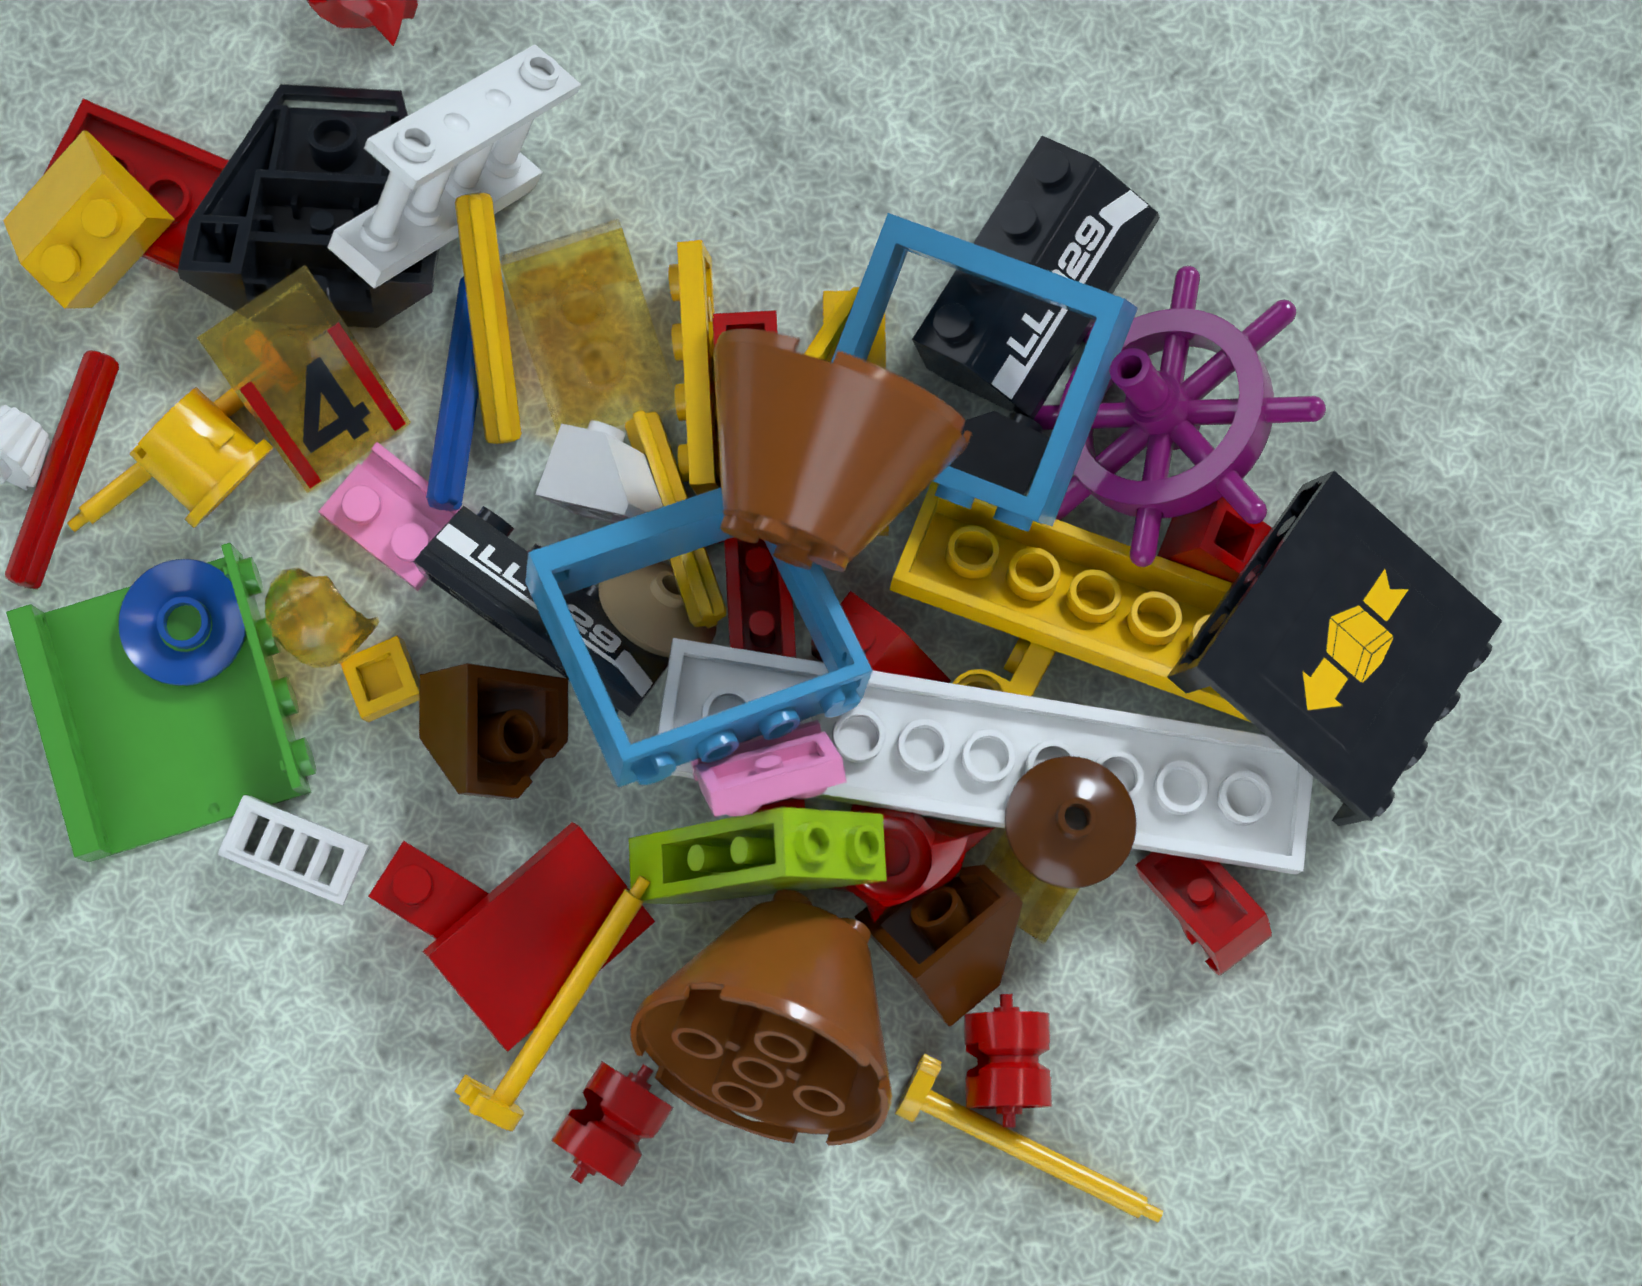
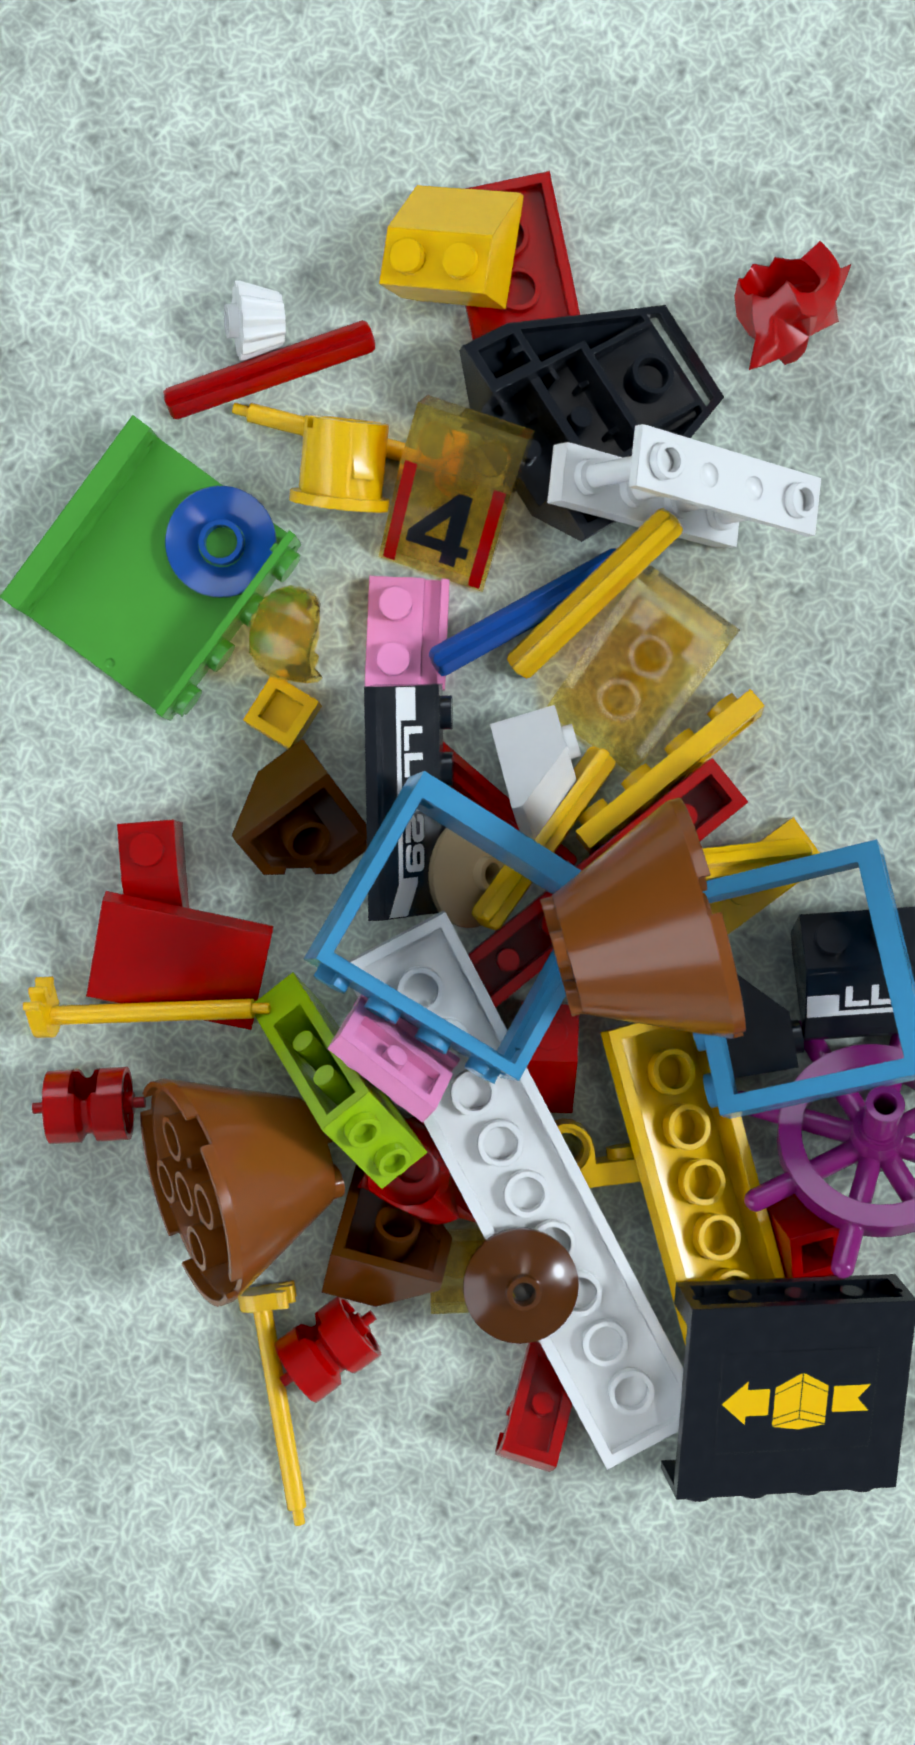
camera: 55 degrees right, 10 degrees up
(242, 826) = (133, 715): white slope -> none

